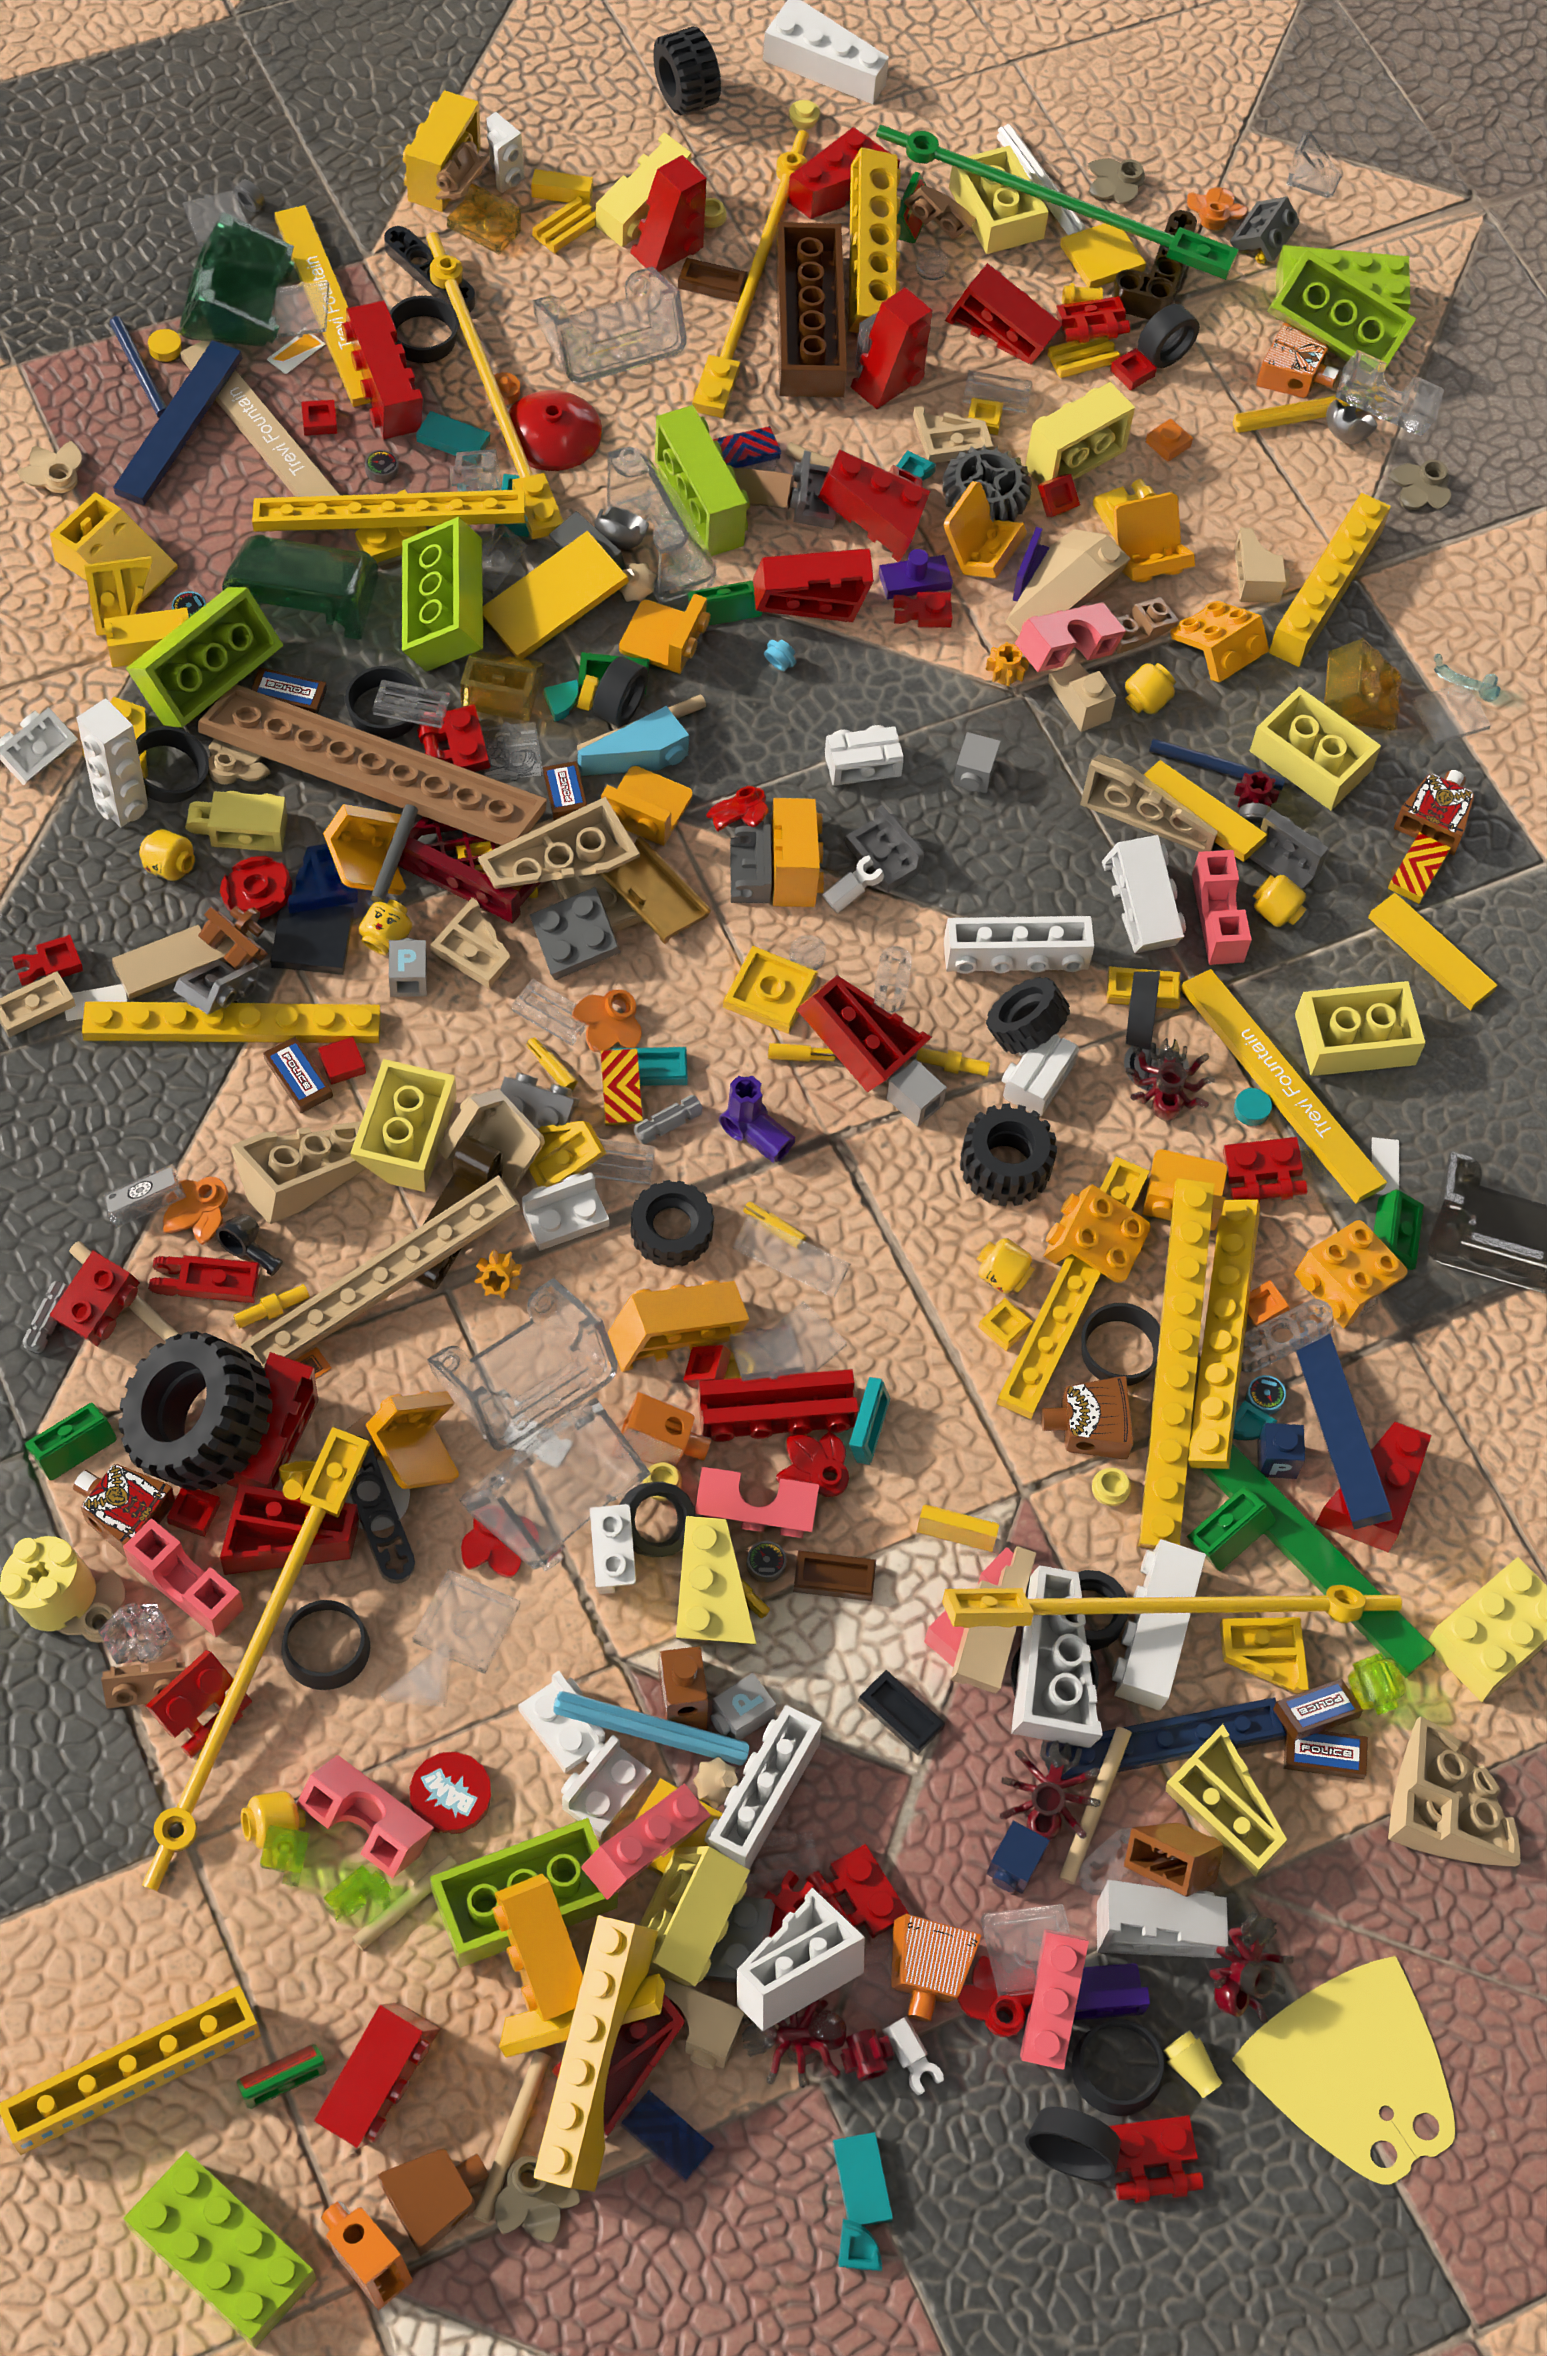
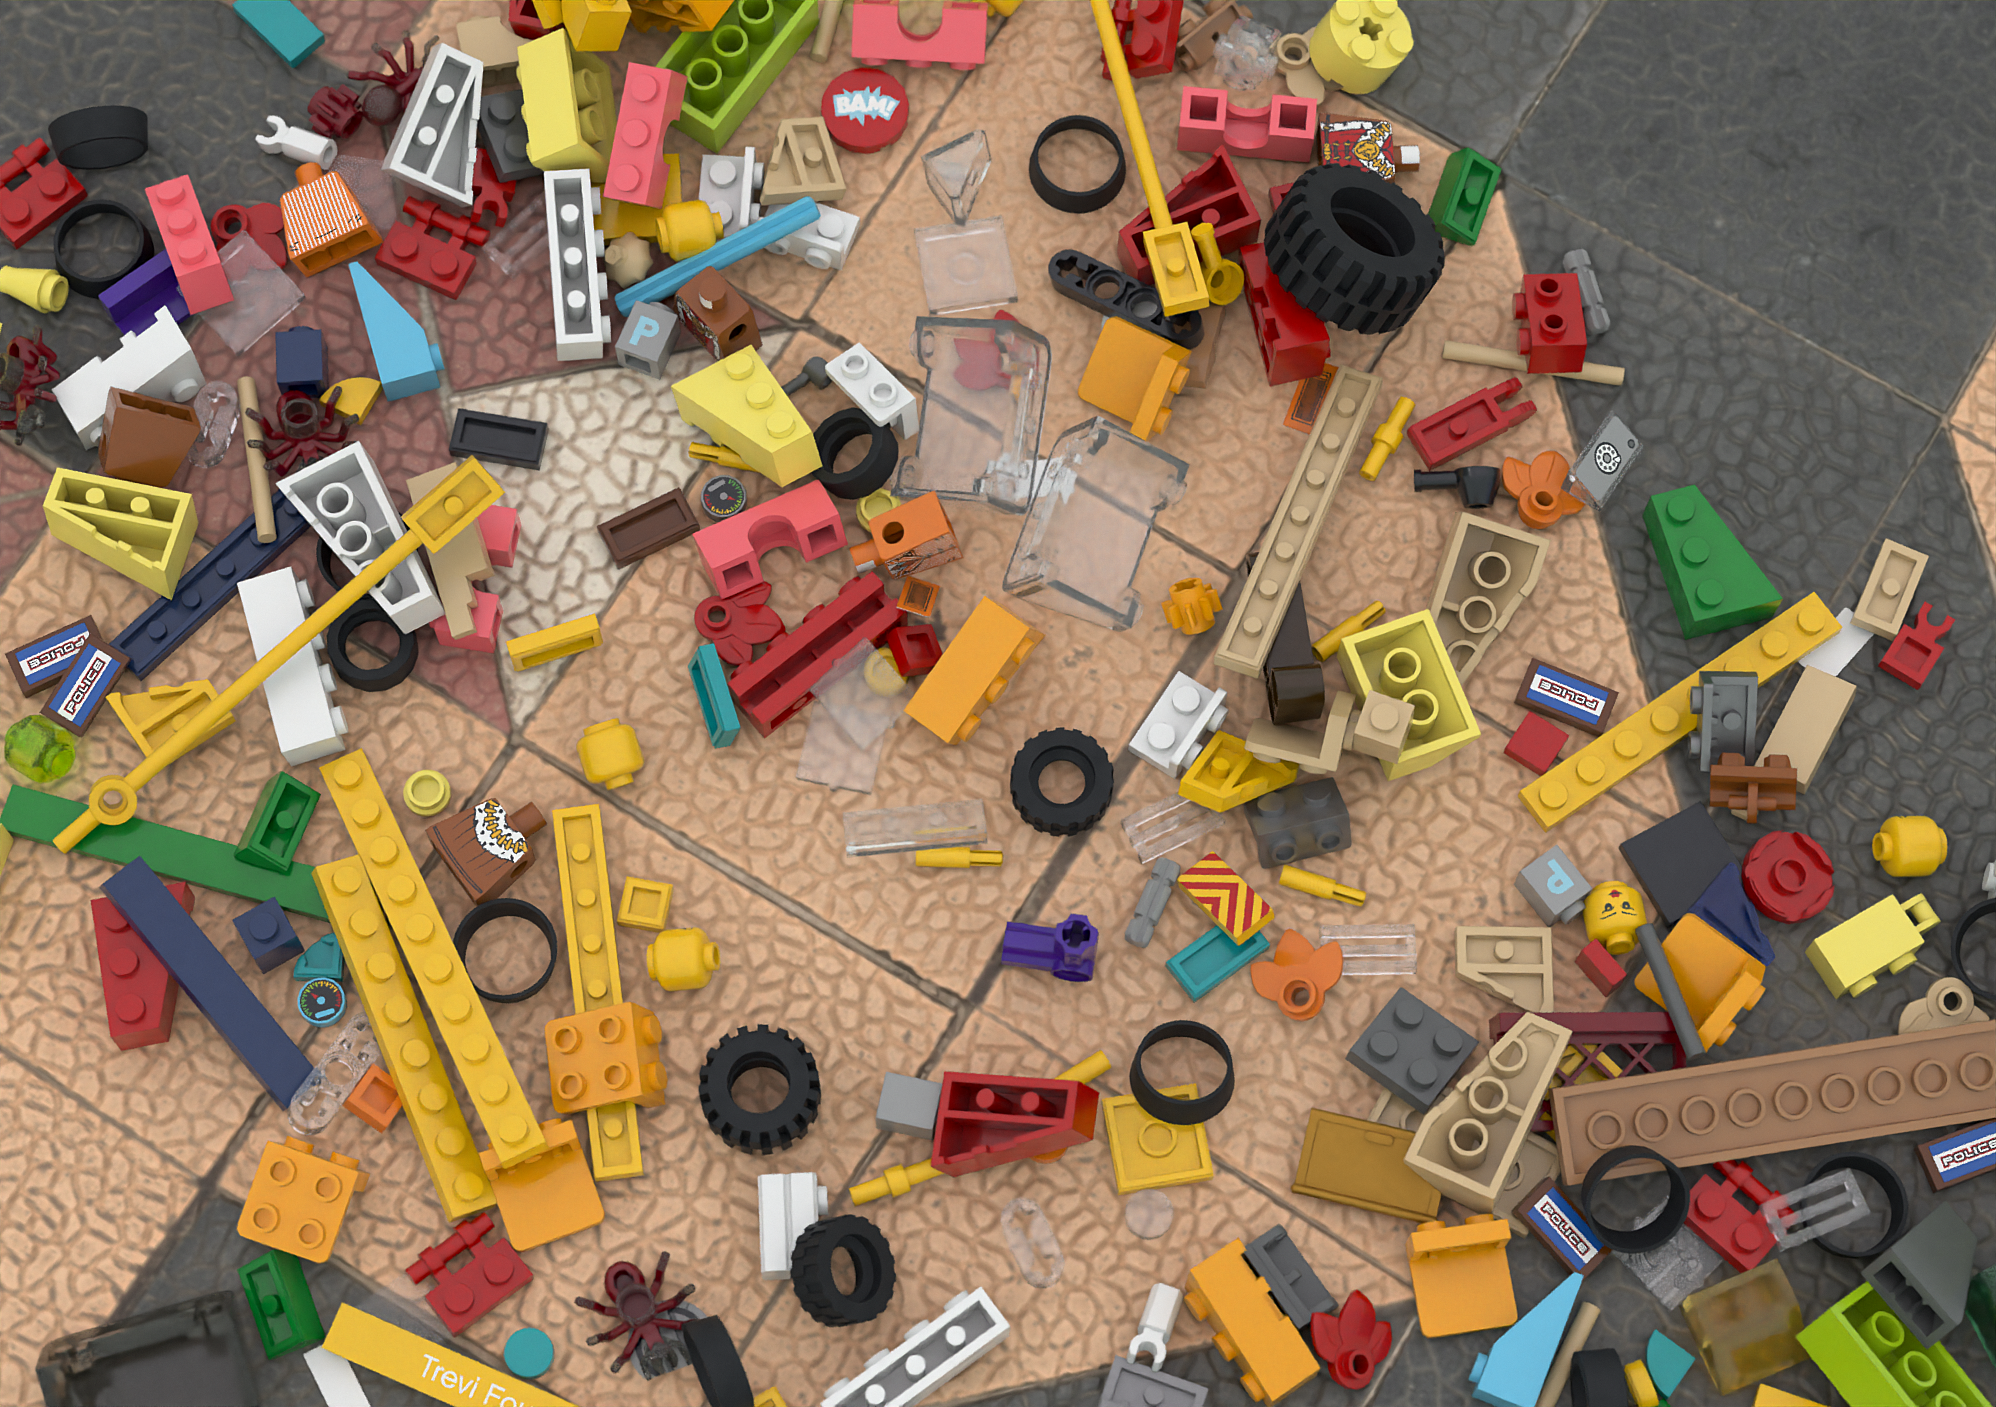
camera: 150 degrees right, 10 degrees up
(140, 1086) = (1705, 566): none -> green wedge
(377, 632) = (1927, 1274): none -> dark grey slope
(403, 1203) = (1330, 643): none -> yellow pin
(419, 907) = (1600, 968): none -> red tile
(447, 1084) = (1383, 727): none -> tan brick
(497, 755) = (1660, 1229): none -> black tyre
(534, 1769) = (802, 164): none -> tan wing
(634, 1611) = (812, 371): none -> dark grey hand
(659, 1761) = (688, 229): none -> yellow head
(685, 1387) = (918, 596): none -> sticker
(739, 1037) = (1182, 1111): none -> black tyre
(933, 1828) = (397, 340): none -> medium azure slope
(968, 1427) = (610, 753): none -> yellow head
(987, 1811) = (356, 397): none -> yellow tile

